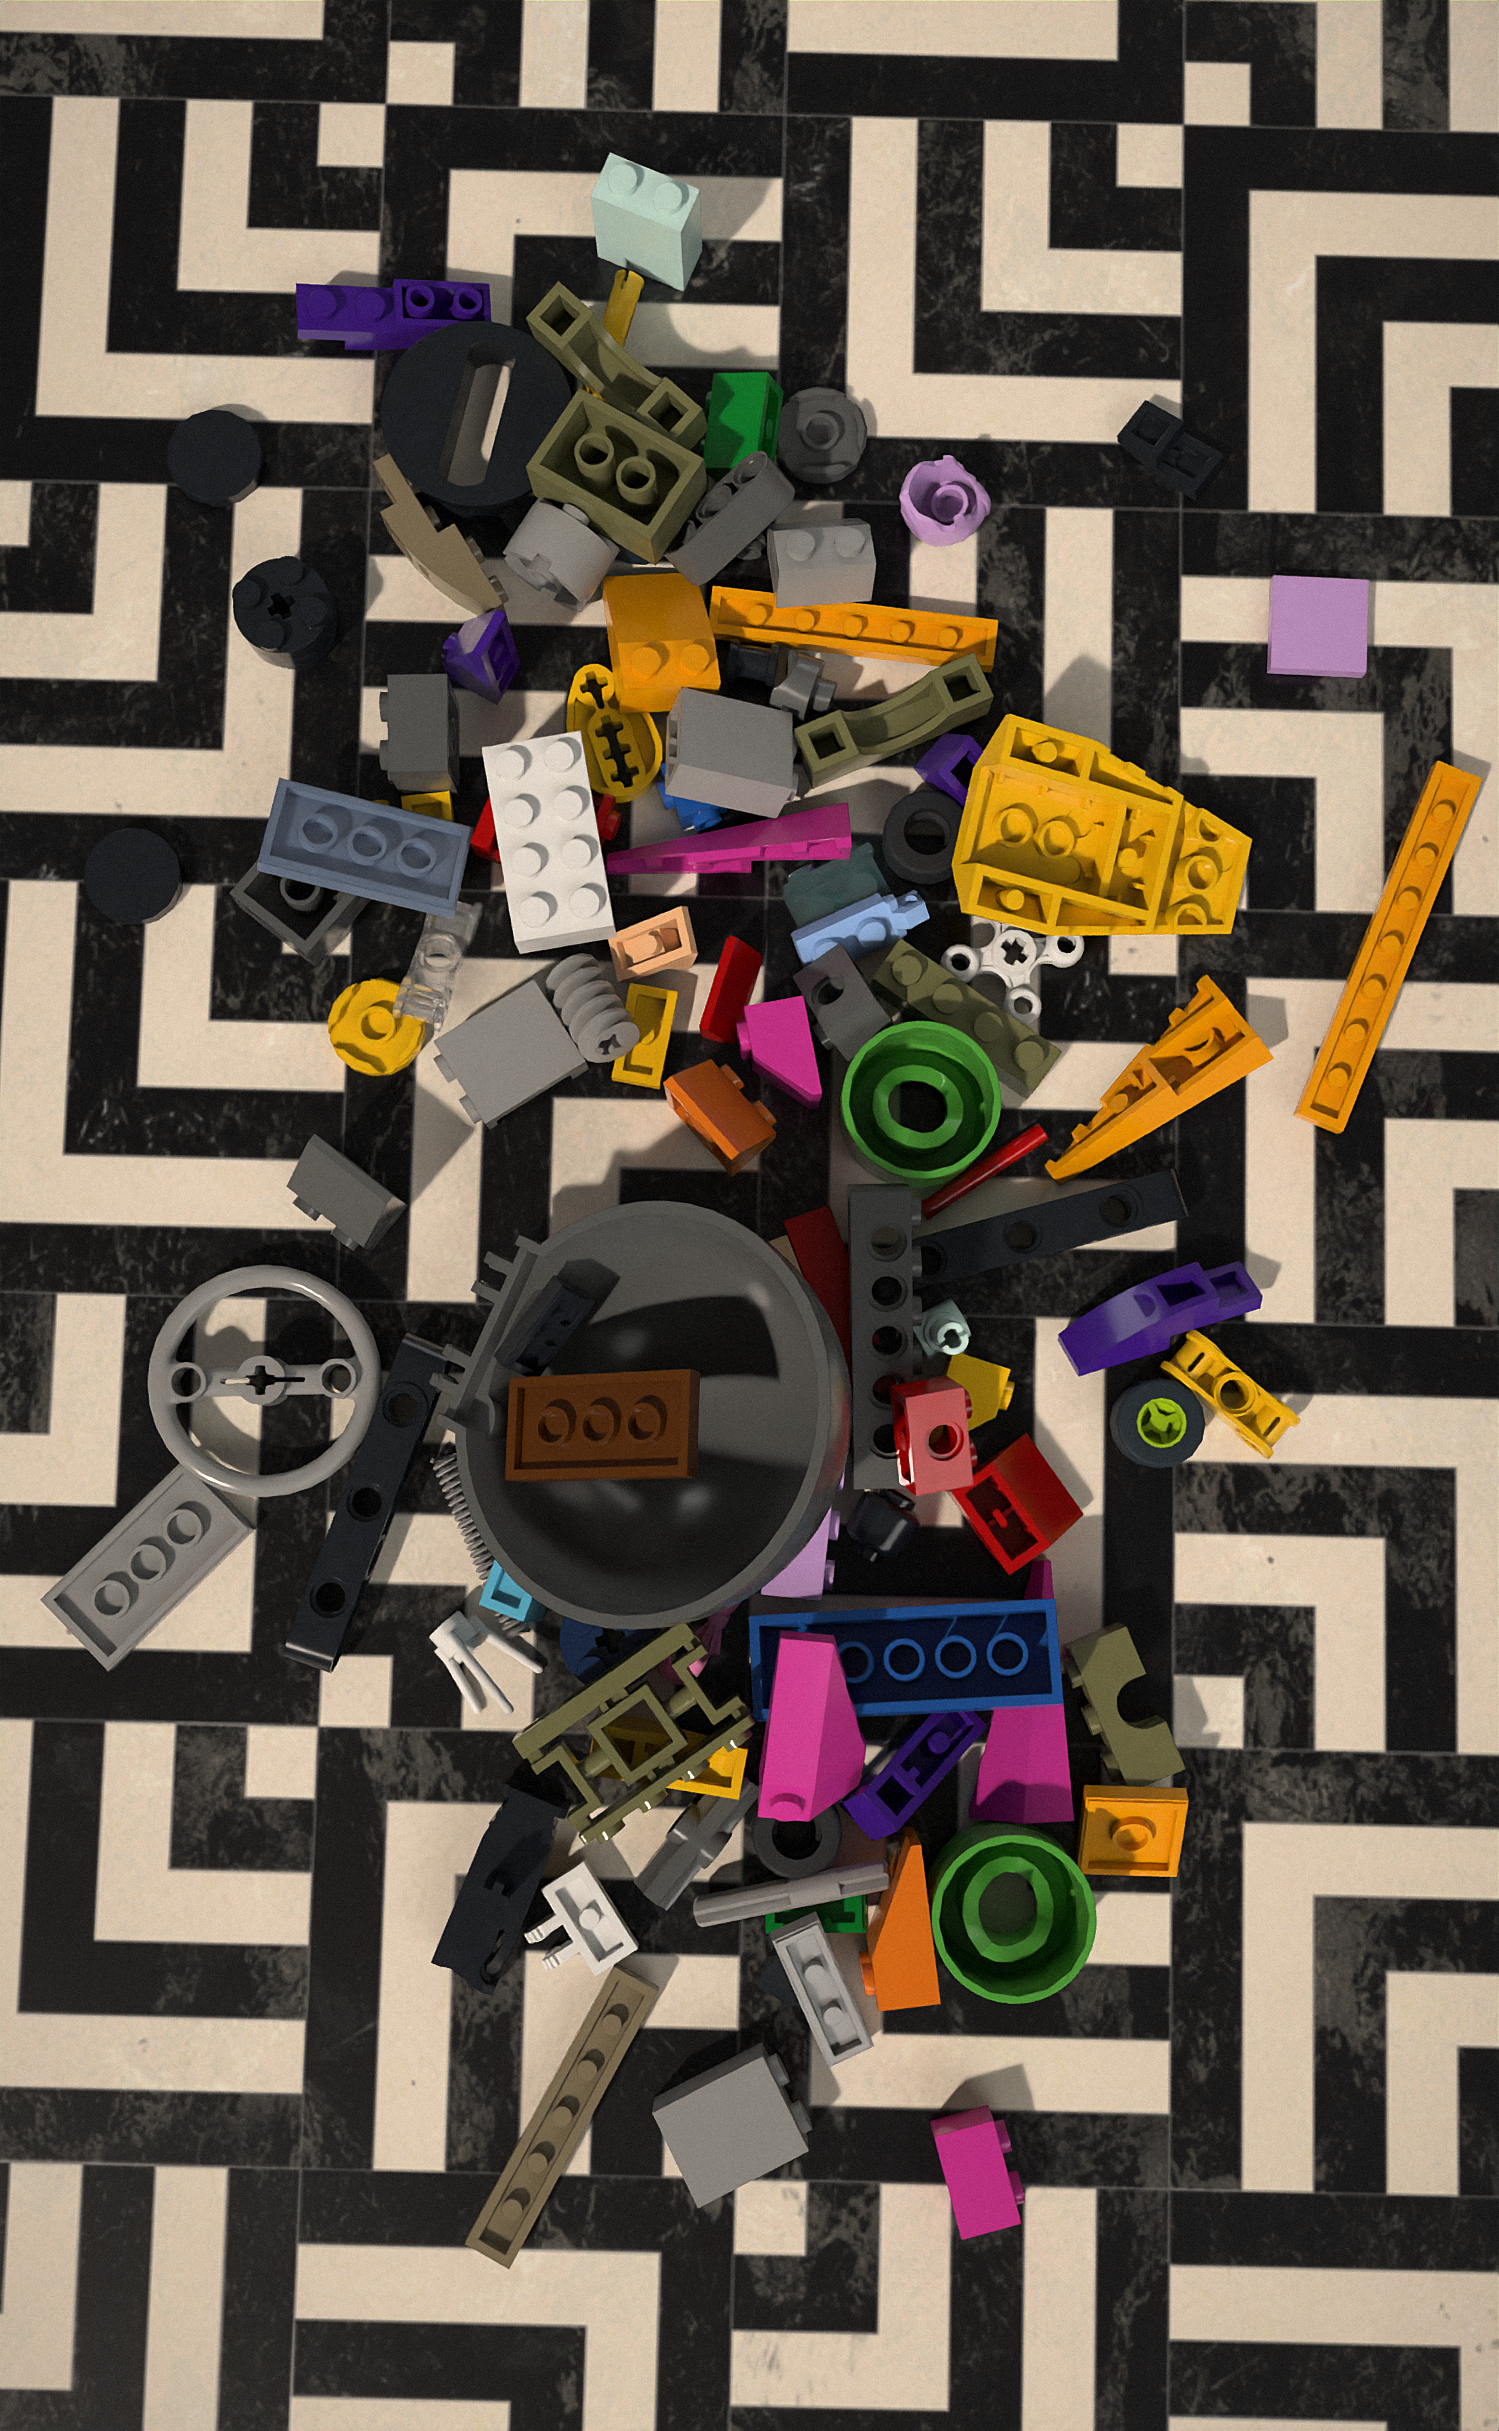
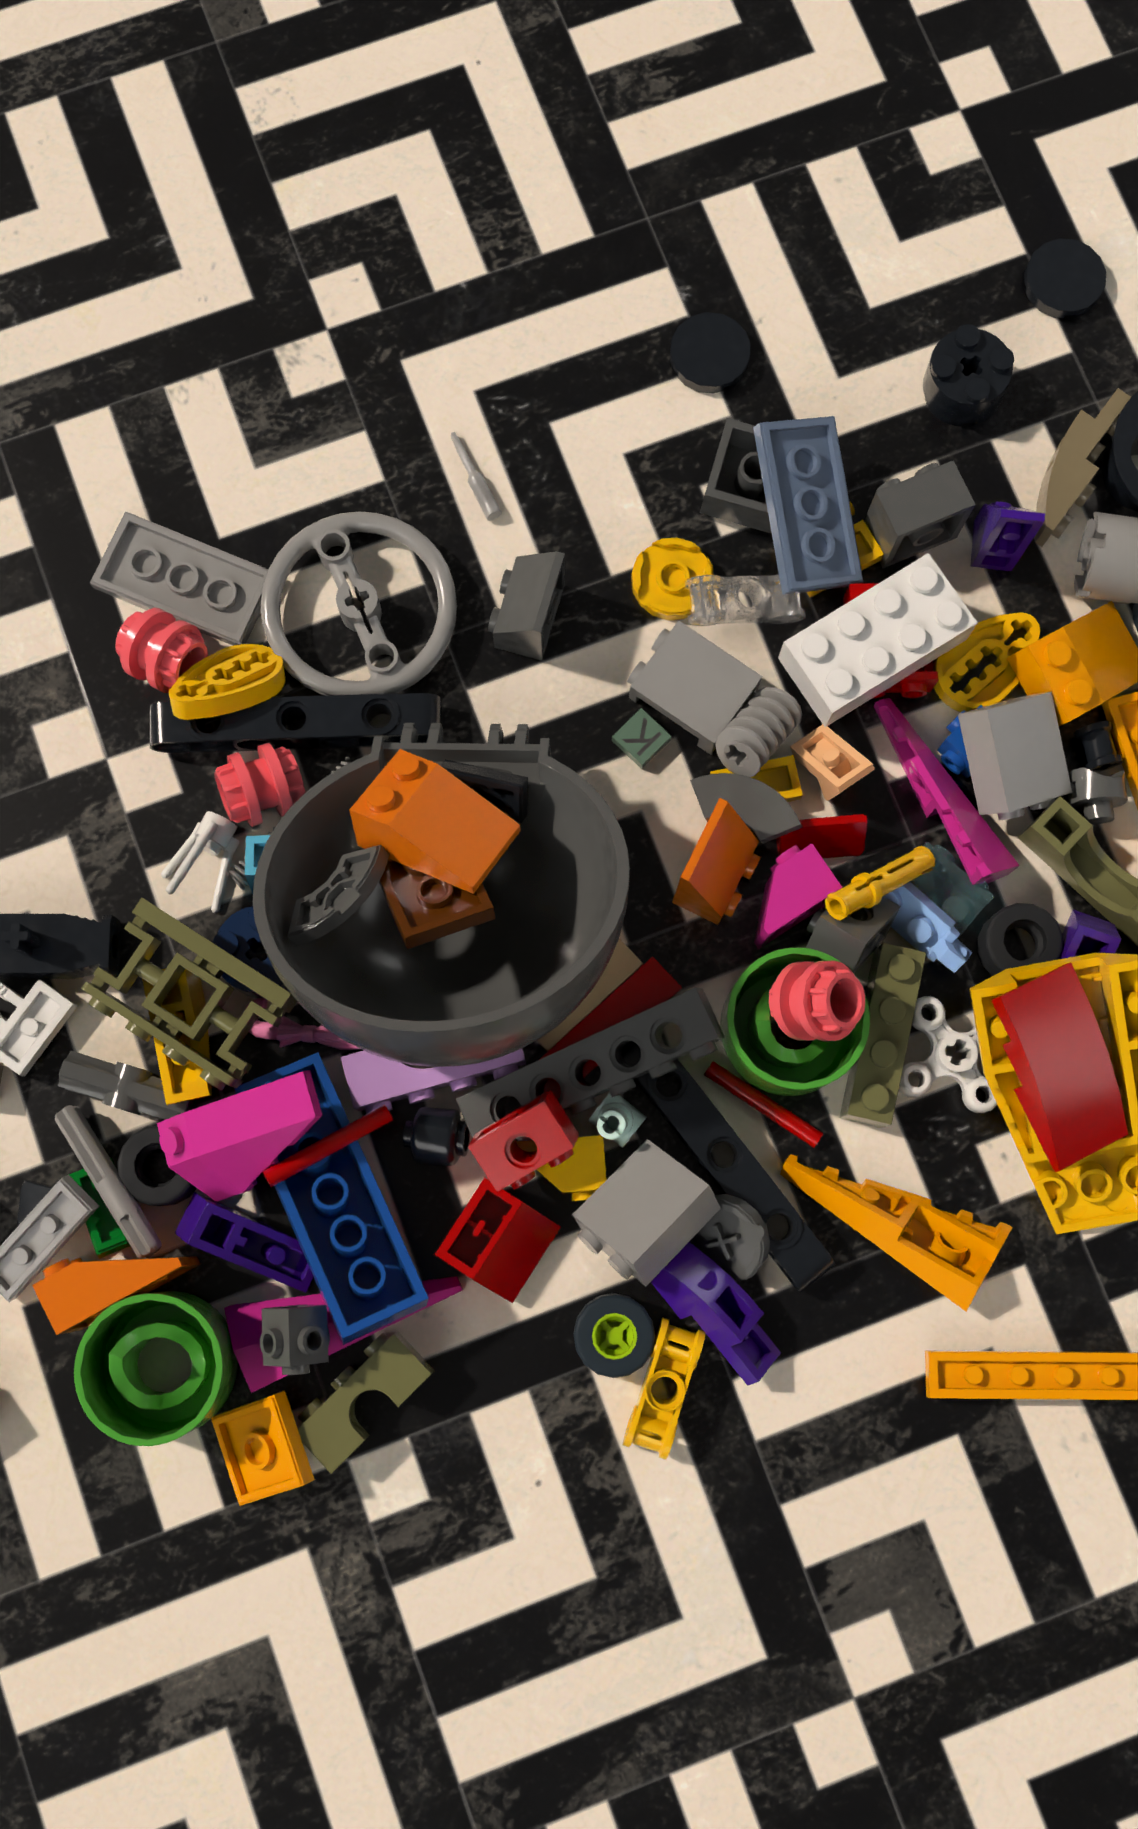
camera: 70 degrees right, 5 degrees down
(174, 1193) = (477, 483): none -> light grey piece
(225, 1618) = (158, 647): none -> coral piece
(295, 1558) = (228, 682): none -> yellow piece
(425, 1567) = (259, 784): none -> coral piece
(541, 1135) = (641, 738): none -> sand green tile
(567, 1397) = (432, 822): none -> orange slope
(607, 1526) = (339, 895): none -> dark grey tile
(663, 1054) = (753, 800): none -> dark grey tile
(813, 969) = (868, 889): none -> yellow pin
(855, 1643) = (327, 1145): none -> red bar
(912, 1073) = (817, 1000): none -> coral piece
(1038, 1753) = (294, 1337): none -> dark grey brick
(1053, 1340) = (645, 1213): none -> light grey brick
(1076, 855) = (1062, 1067): none -> red slope
(1104, 1264) = (735, 1238): none -> dark grey tile

